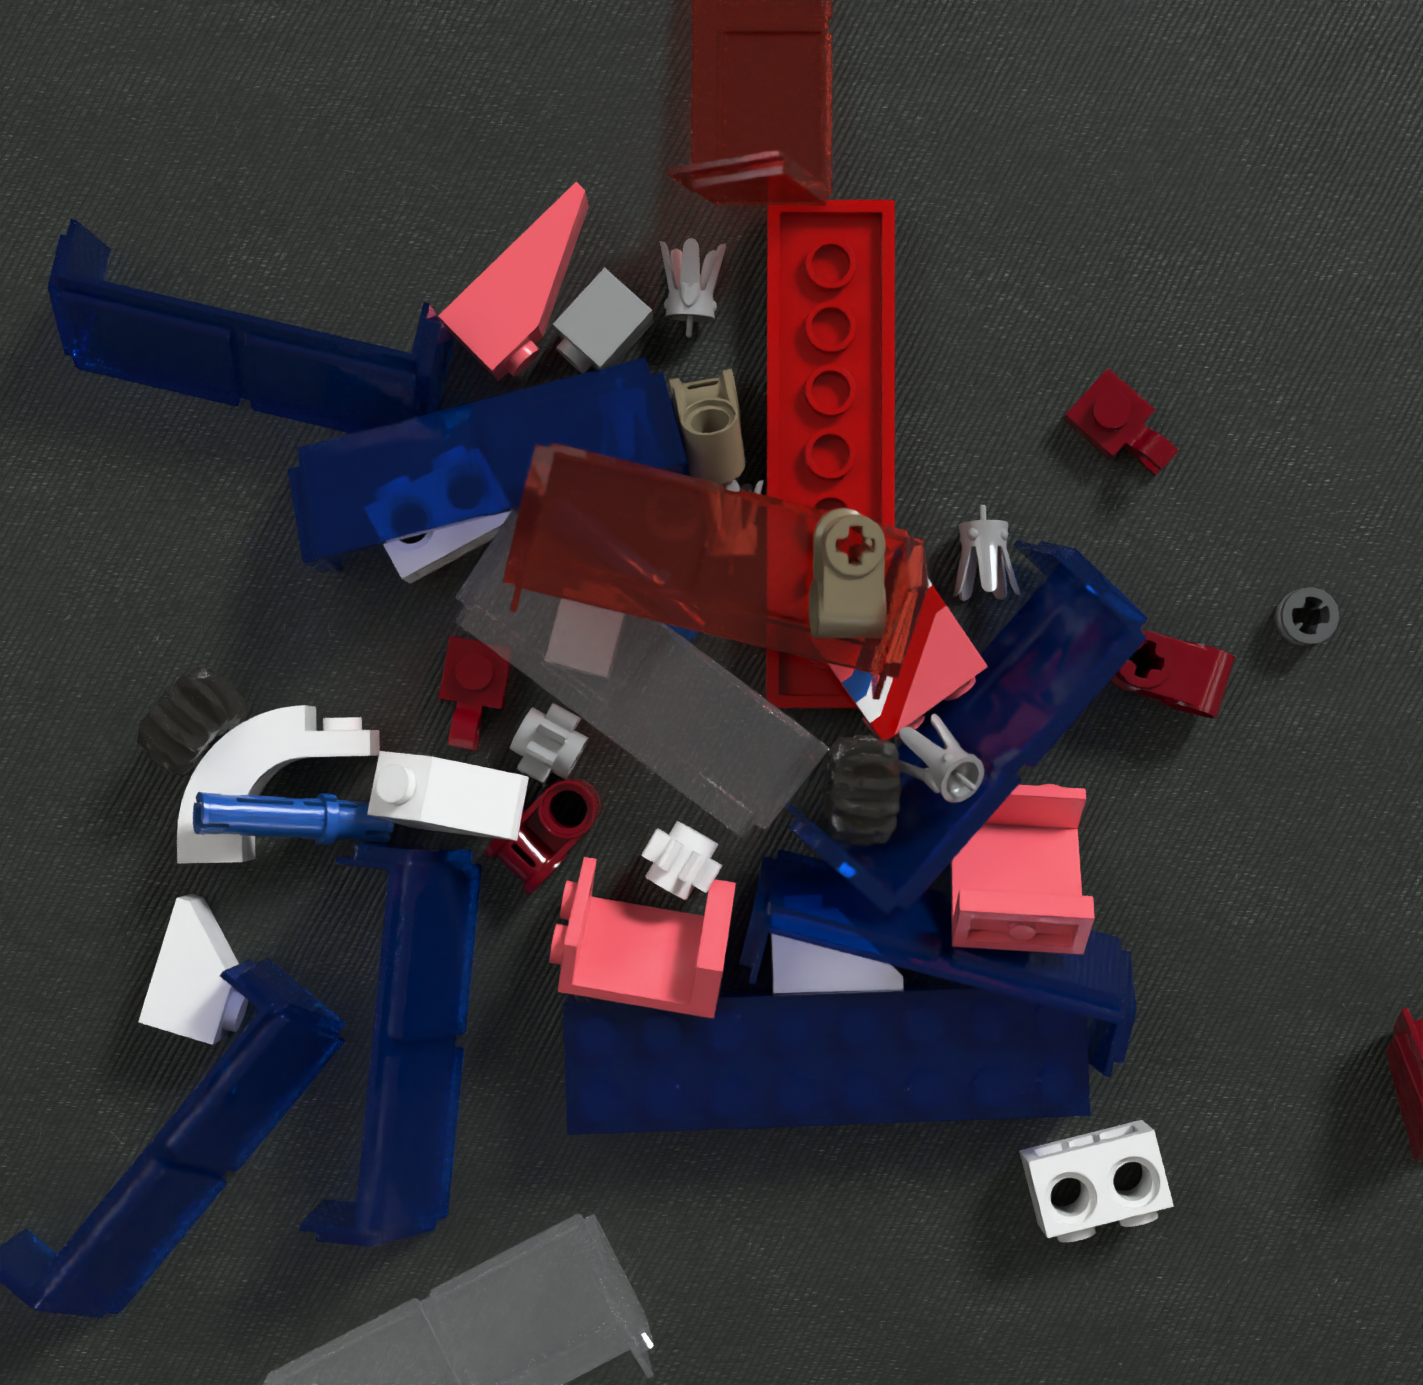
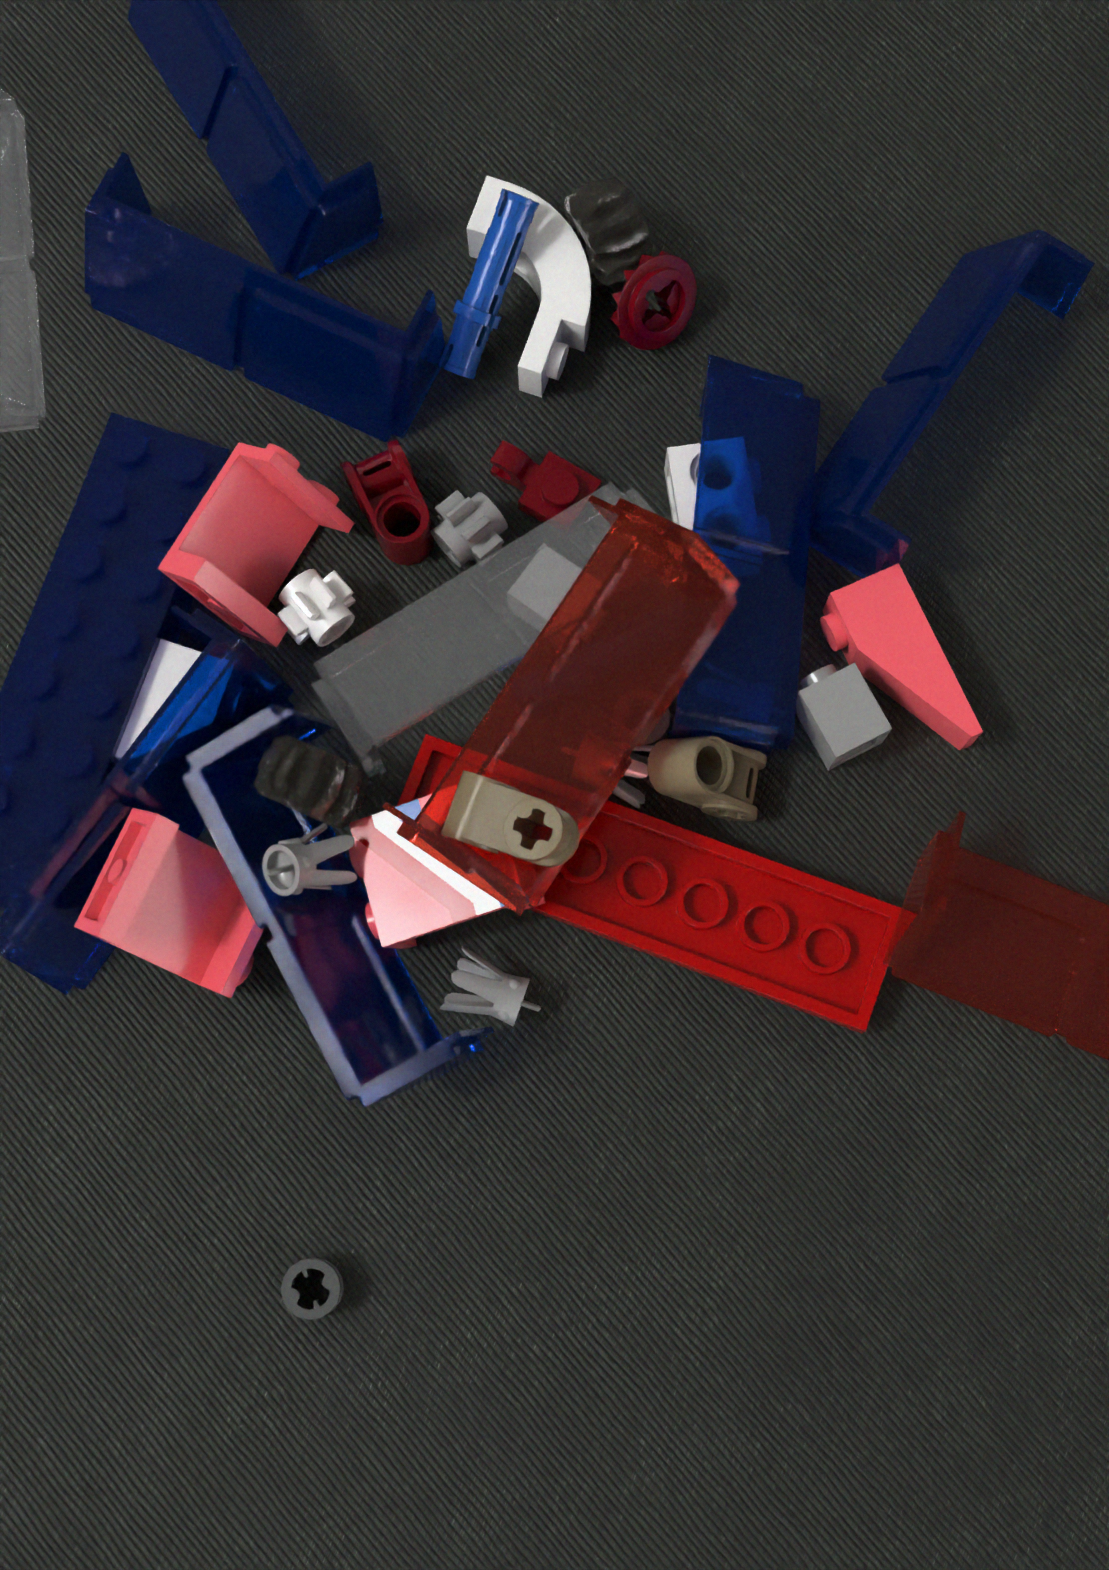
camera: 110 degrees right, 10 degrees down
(186, 985) = (404, 166): white slope -> none
(228, 633) = (676, 296): none -> dark red gear
(447, 796) = (454, 418): white slope -> none
(689, 291) = (838, 800): light grey piece -> none
(1114, 418) = (576, 1171): dark red plate -> none
(1179, 674) = (304, 1138): dark red piece -> none

